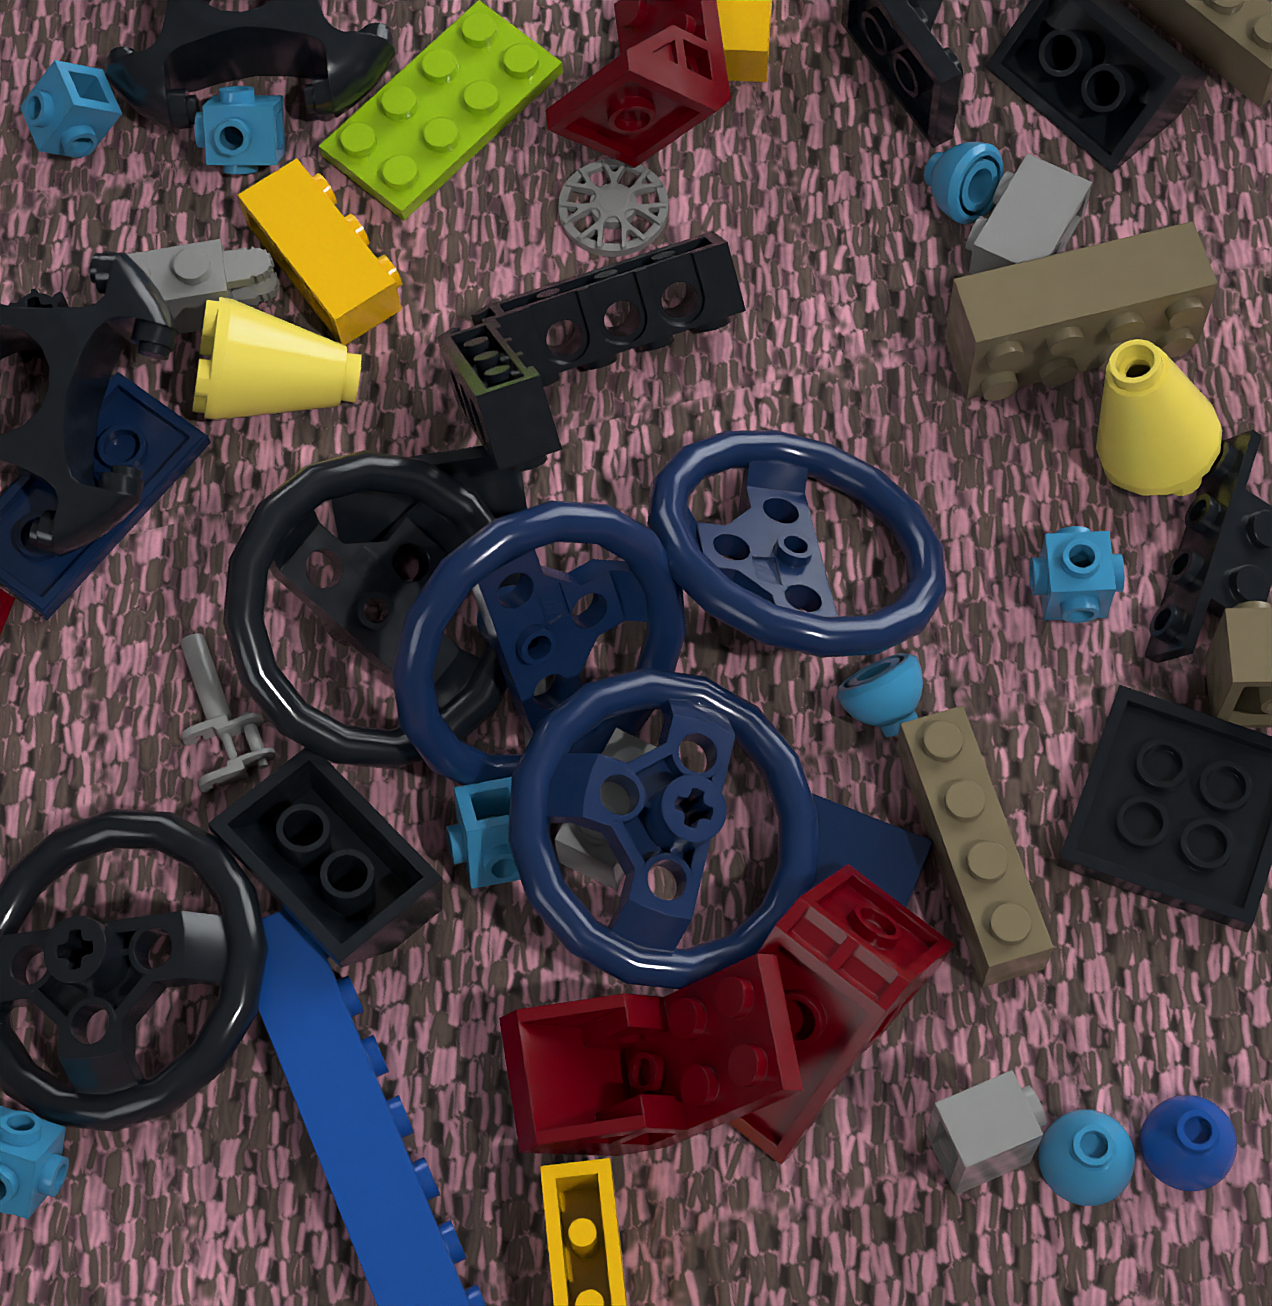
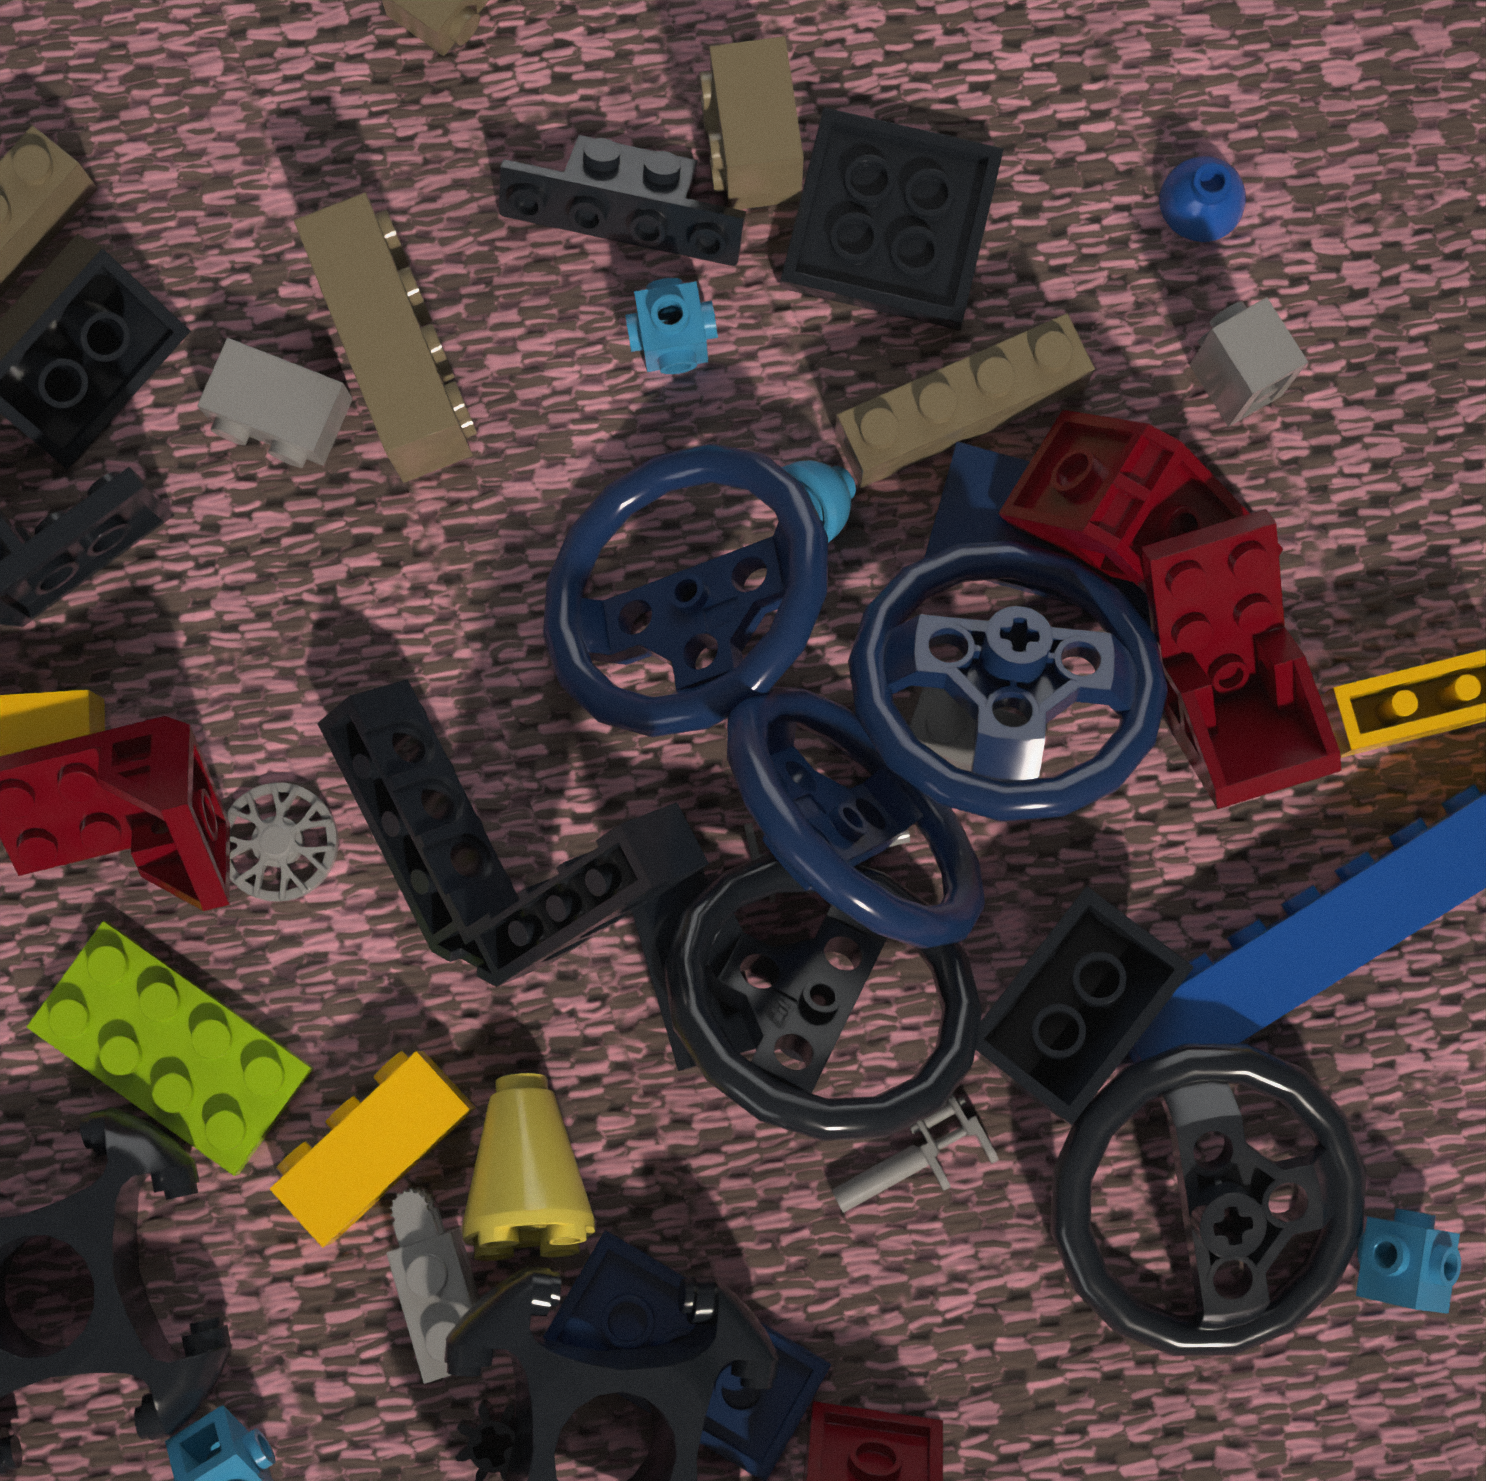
camera: 100 degrees left, 15 degrees up
(258, 119) = (229, 1263): dark azure brick -> none
(483, 839) = (1000, 858): dark azure brick -> none
(965, 180) = (222, 475): dark azure brick -> none
(1086, 1157) = (1226, 276): dark azure brick -> none
(1154, 424) = (531, 264): light yellow cone -> none

